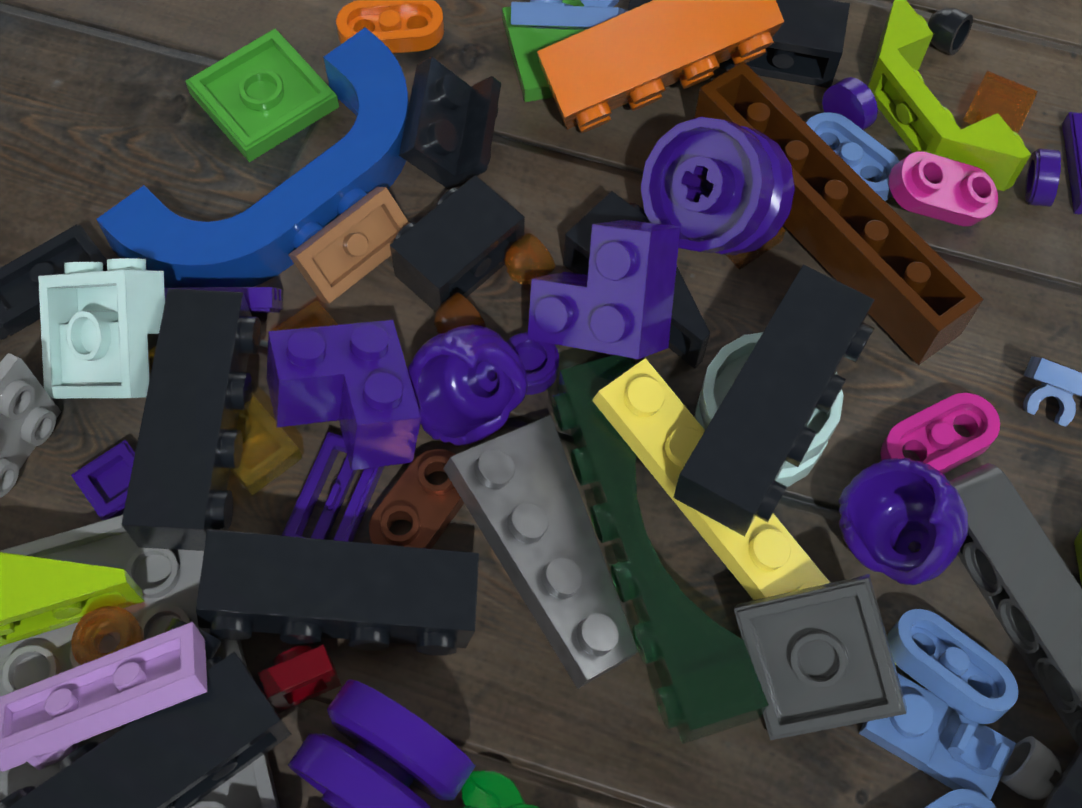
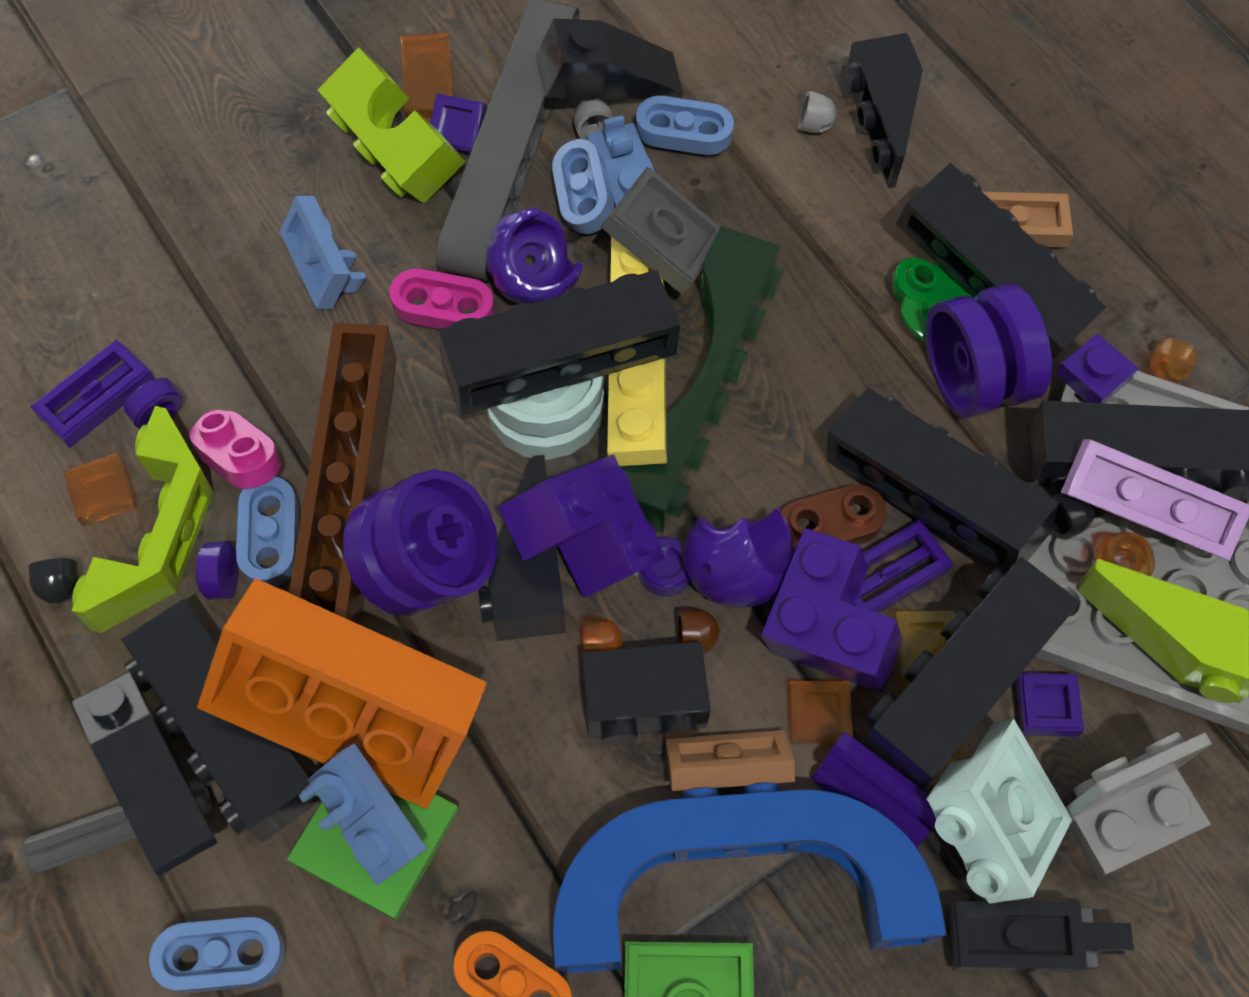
camera: 140 degrees left, 0 degrees up
(299, 676) = (1011, 453): dark red plate -> none
(449, 124) = (553, 810): black bracket -> none
(543, 537) = (766, 432): flat silver wing -> none

